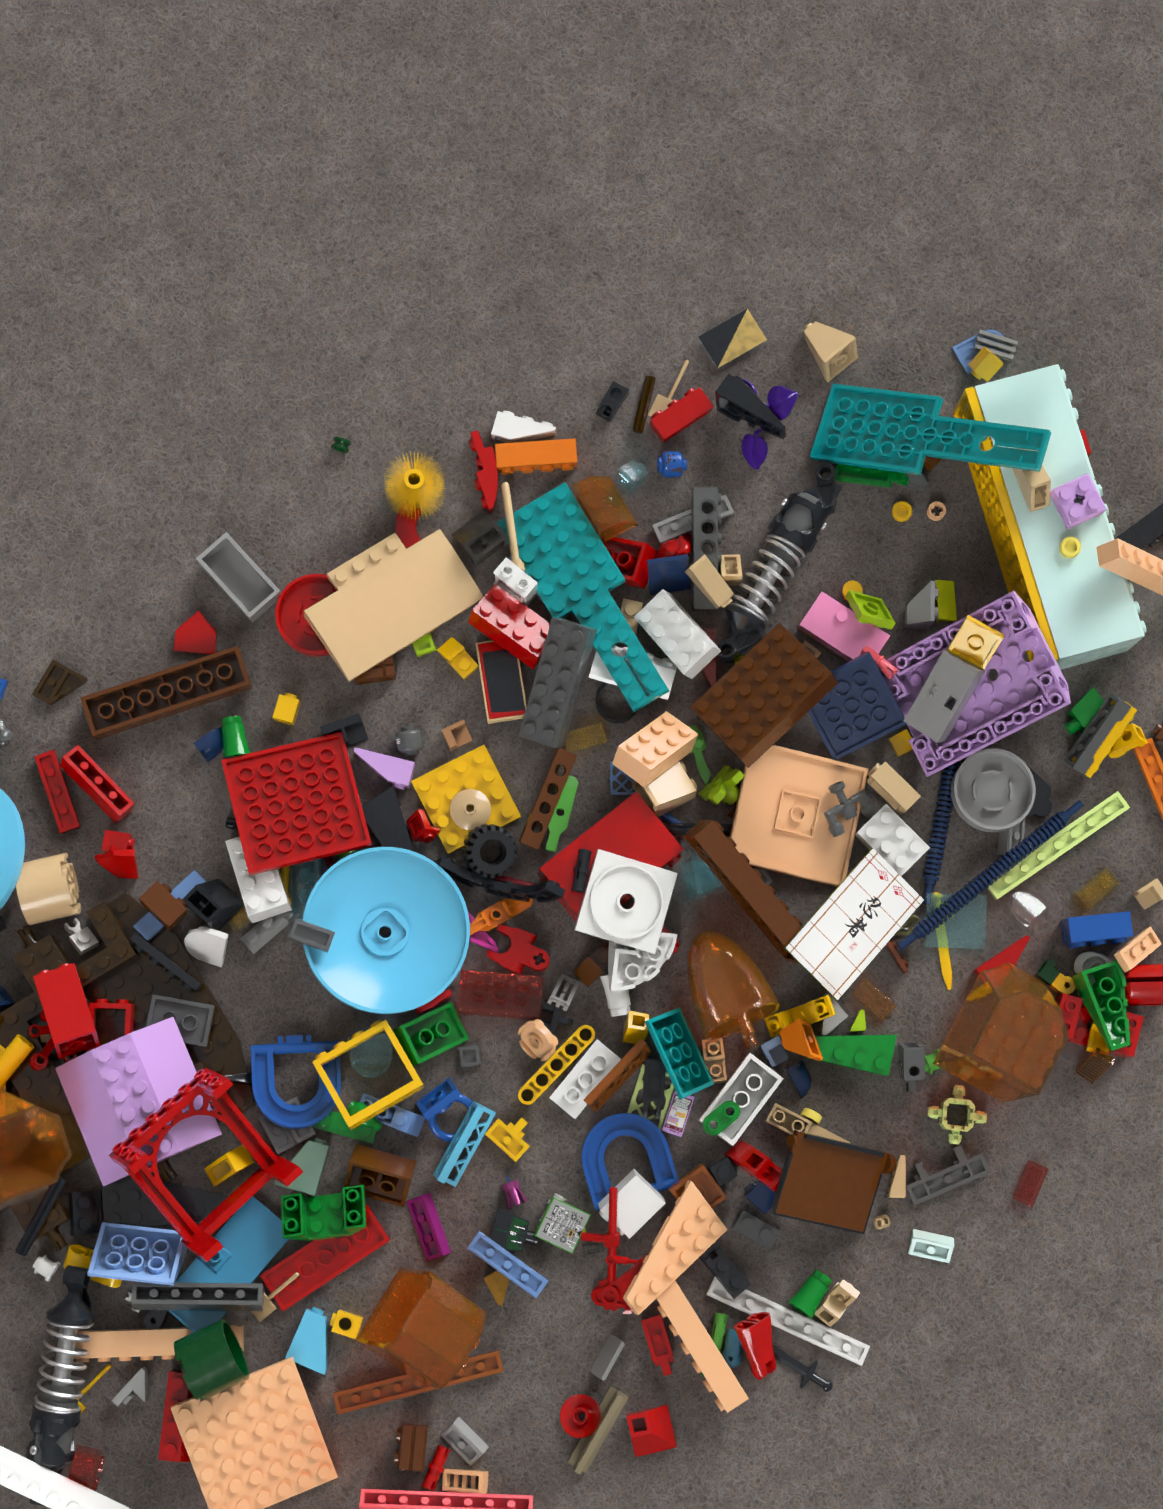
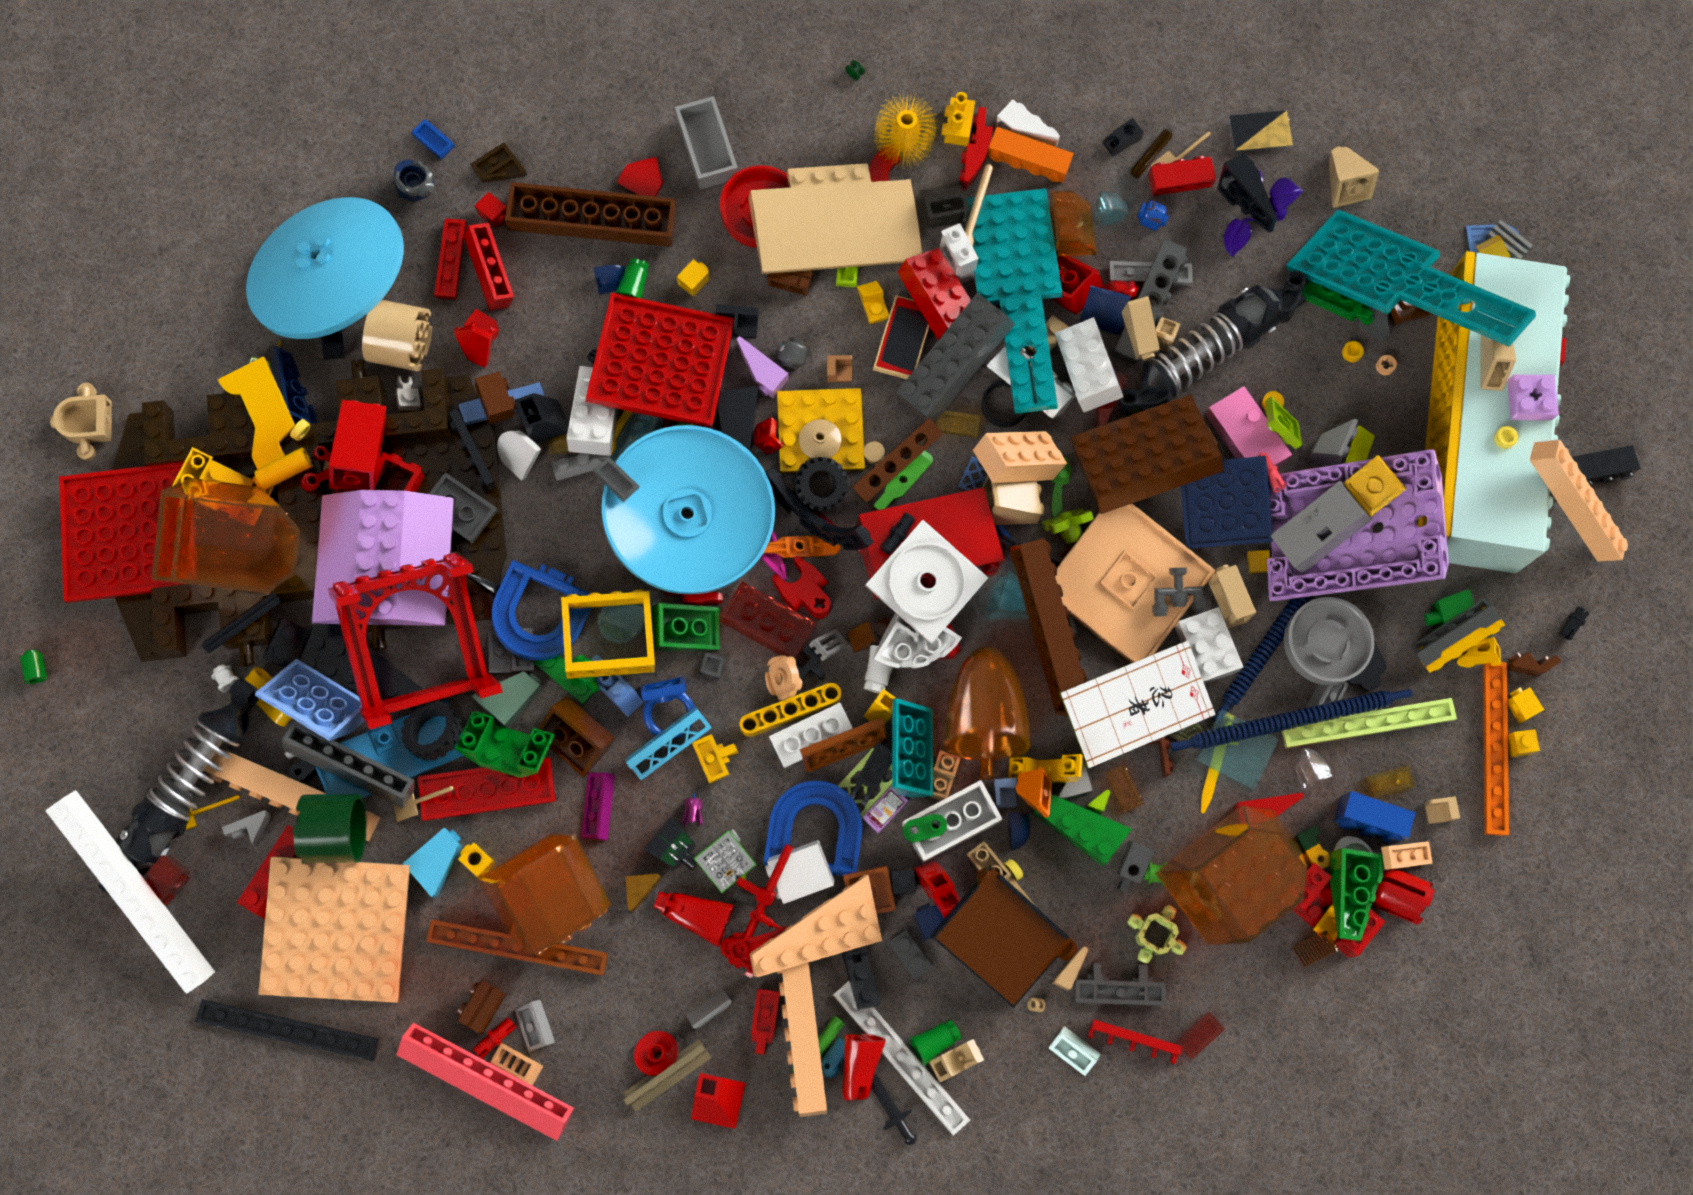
camera: 25 degrees right, 5 degrees down
(6, 1018) = (300, 430): none -> light yellow tile
(73, 729) = (491, 210): none -> red brick
(228, 1165) = (439, 661): yellow slope -> none
(272, 1238) = (443, 743): none -> black tyre
(458, 452) = (959, 120): none -> yellow brick
(507, 1264) = (654, 873): medium blue tile -> none
(522, 797) = (874, 452): none -> tan tile
(566, 1281) = (696, 914): none -> red piece
(977, 1212) = (1134, 1037): none -> red hinge

